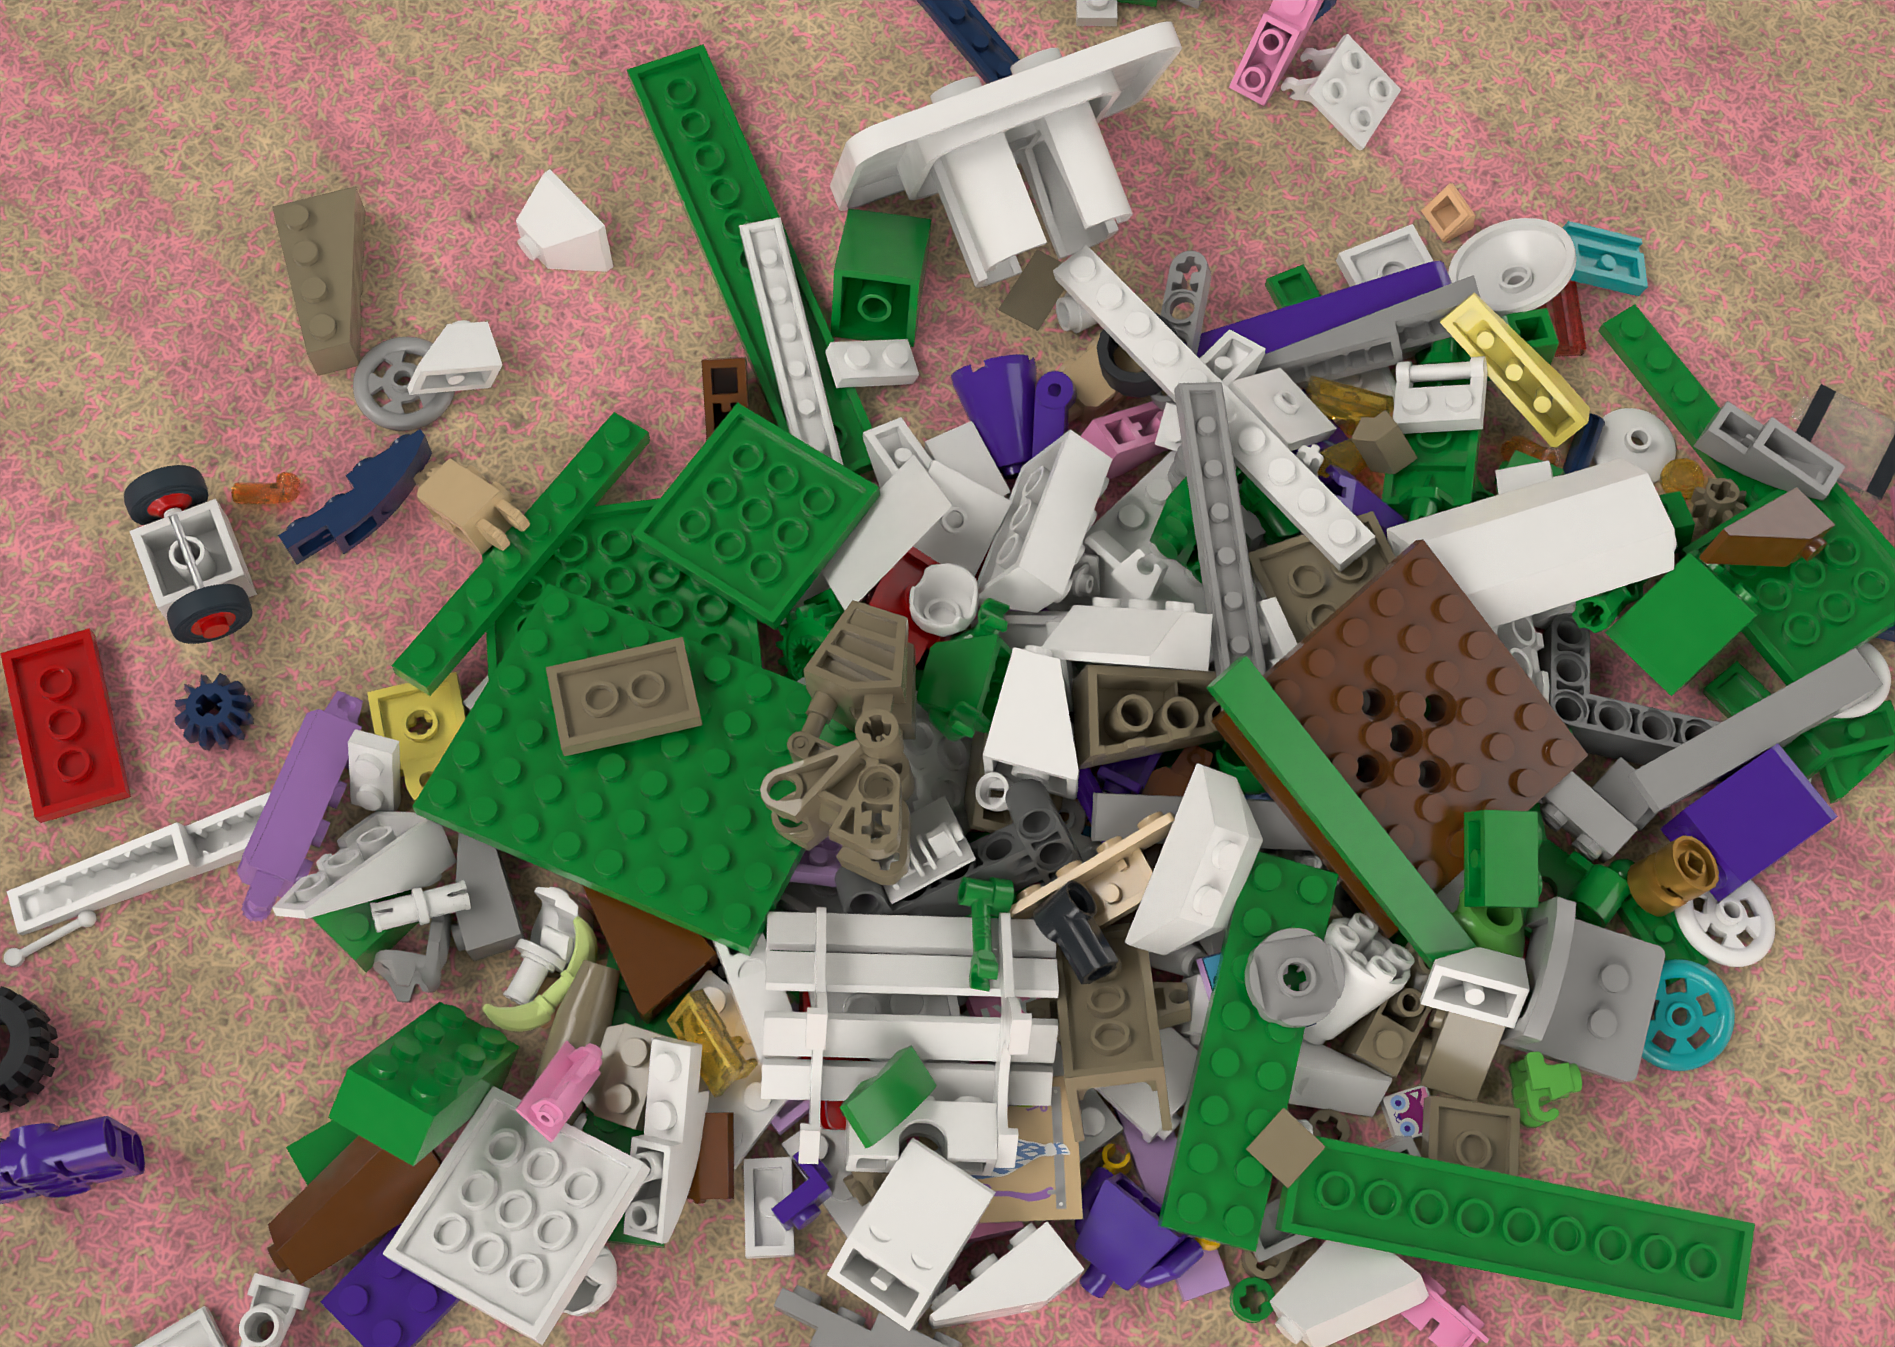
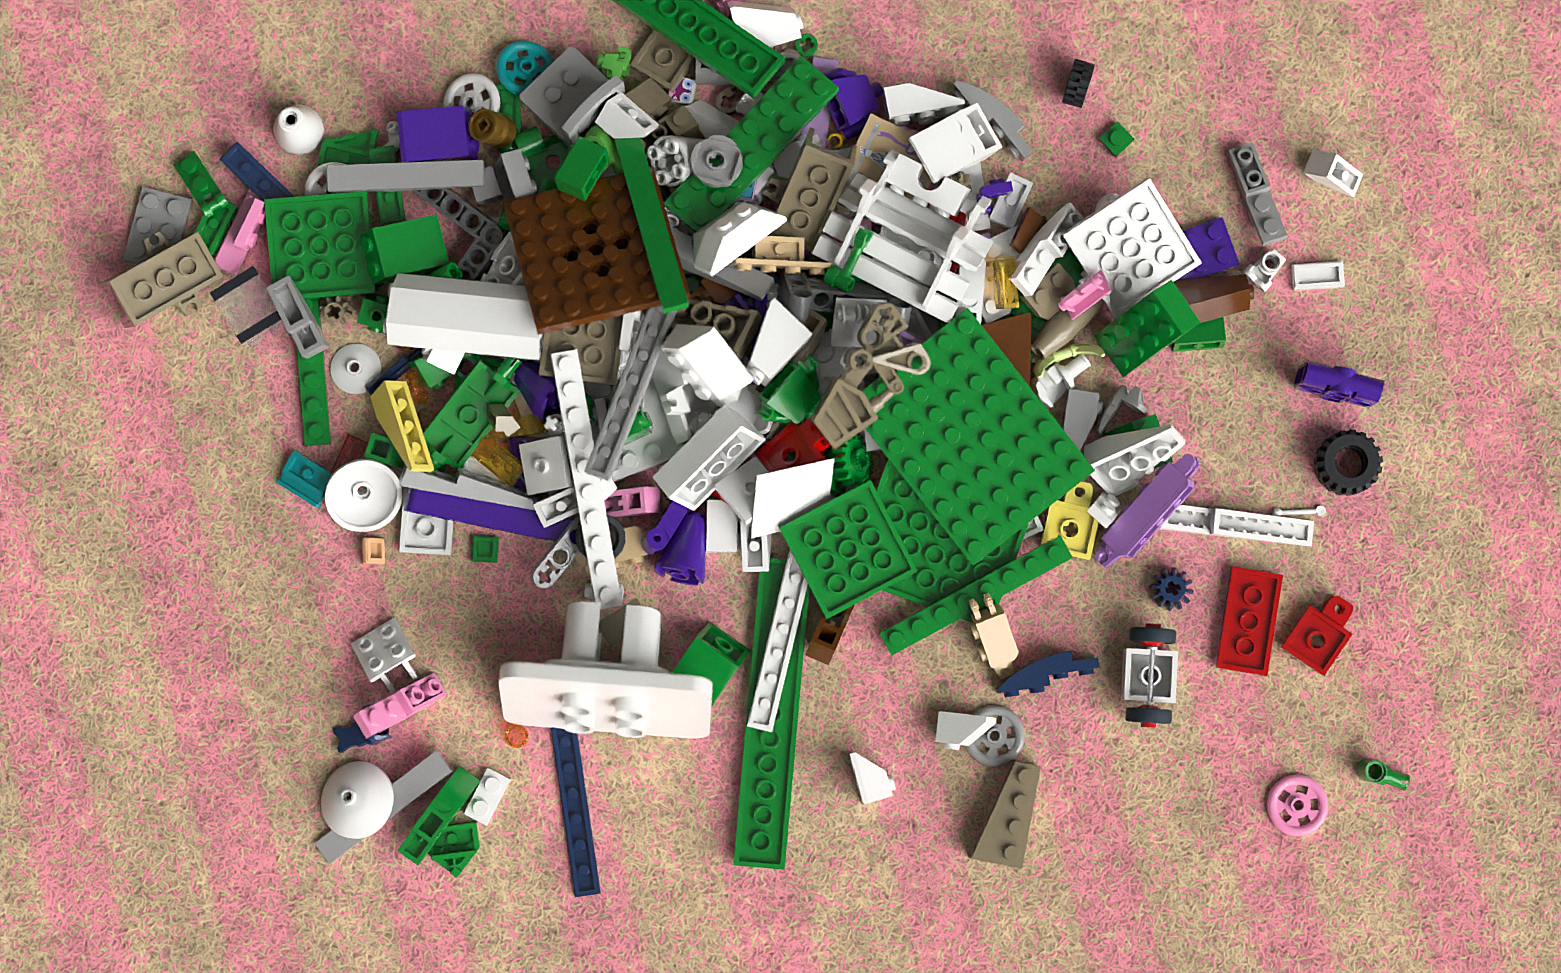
camera: 150 degrees left, 15 degrees up
(263, 493) = (1085, 701): clear orange arm -> none
(420, 906) = (1112, 422): white pin -> none
(623, 696) = (966, 470): dark tan plate -> none
(871, 363) = (739, 616): white plate -> none
(888, 1097) = (941, 200): green slope -> none
(944, 599) = (780, 441): white hair -> none
(990, 782) = (812, 324): white hinge -> none
(1070, 922) = (807, 243): black piece -> none
(1285, 1147) = (763, 90): dark tan sticker -> none
(1440, 406) = (458, 426): white plate -> none
(1682, 476) = (343, 336): clear yellow plate -> none
(1772, 534) = (325, 267): reddish brown slope -> none

